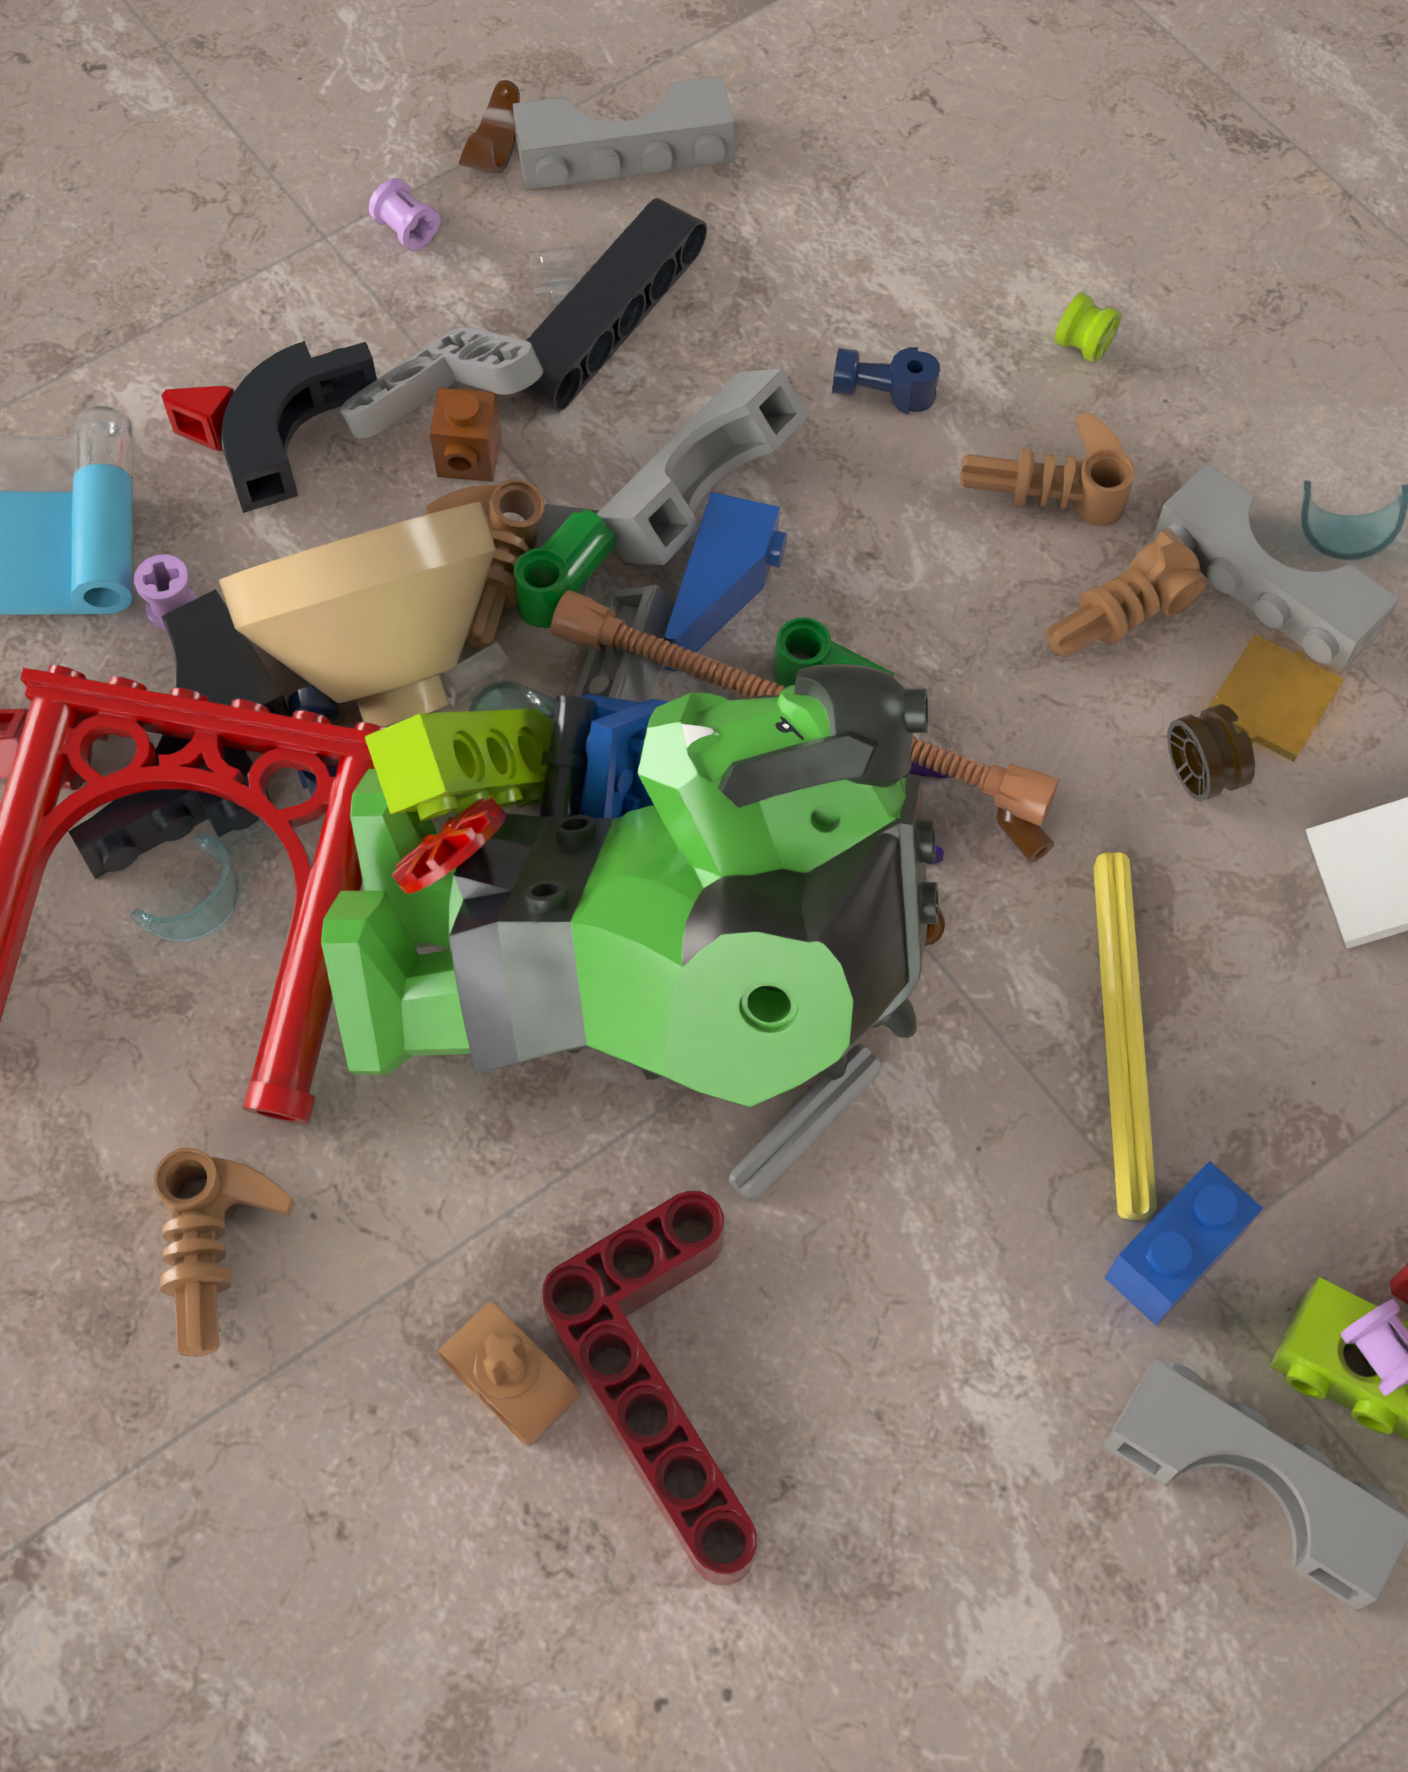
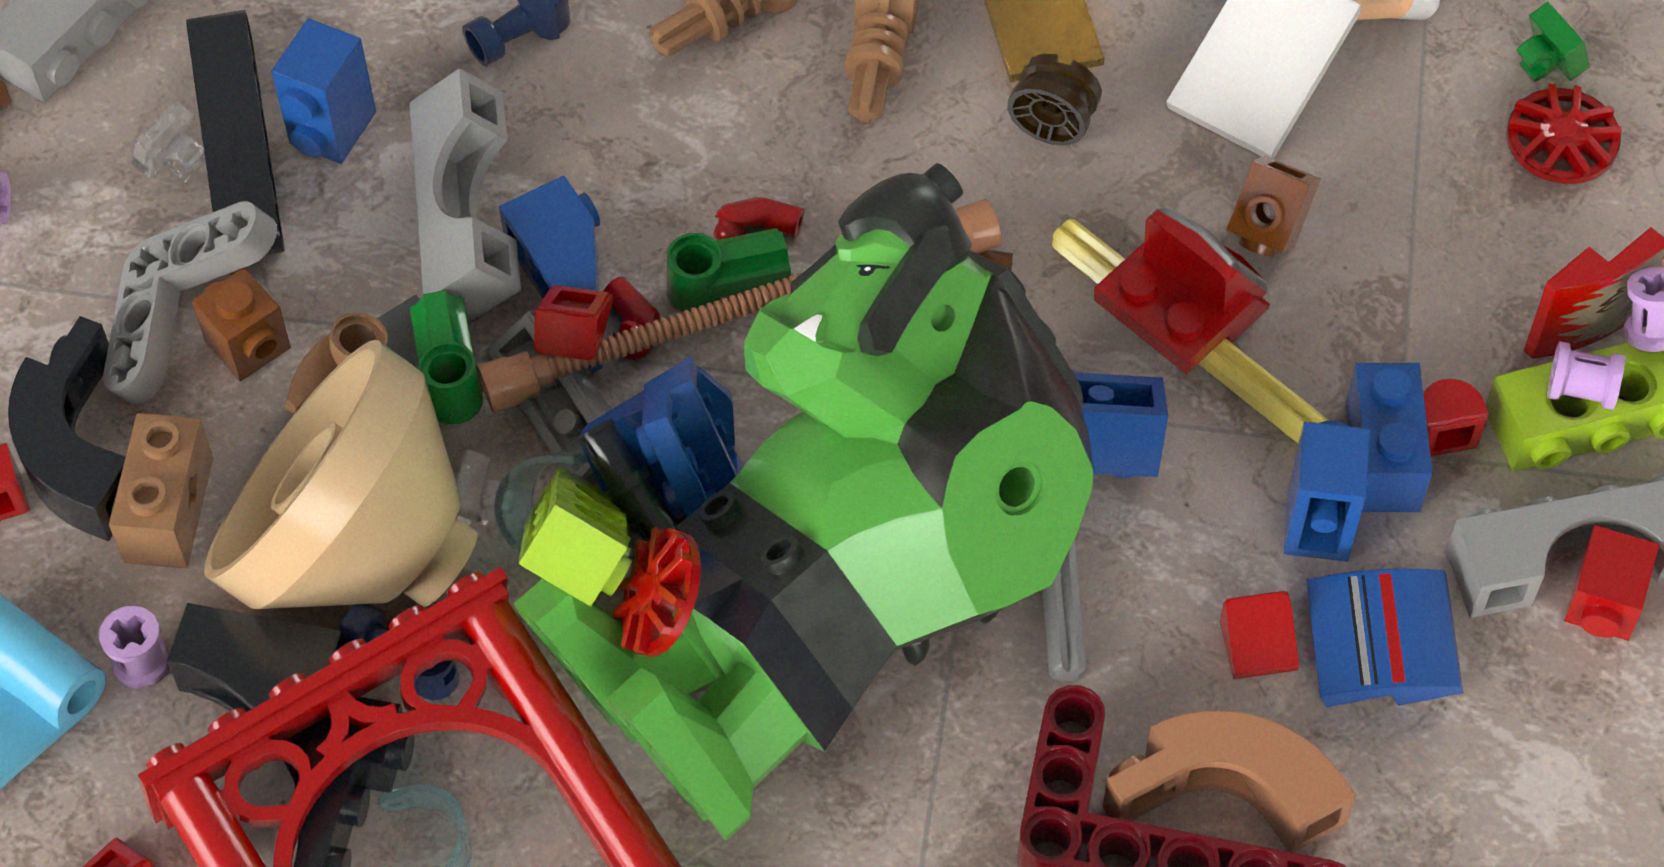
camera: 45 degrees left, 5 degrees down
(295, 501) = (161, 490): none -> medium nougat brick
(662, 613) = (571, 322): none -> red slope
(684, 316) = (324, 91): none -> blue brick
(737, 644) = (632, 308): none -> red arm
(788, 1371) = (1241, 756): none -> nougat arch
(897, 650) = (760, 213): none -> red arm
(913, 1299) = (1259, 634): none -> red slope
(967, 1024) = (1124, 422): none -> blue brick
(1008, 1393) = (1384, 636): none -> blue slope
(1075, 1235) = (1326, 490): none -> blue brick
(1150, 984) = (1183, 290): none -> red piece
(1237, 1533) = (1611, 583): none -> red brick
(1252, 1274) = (1454, 416): none -> red brick
(1293, 980) = (1287, 191): none -> dark orange brick

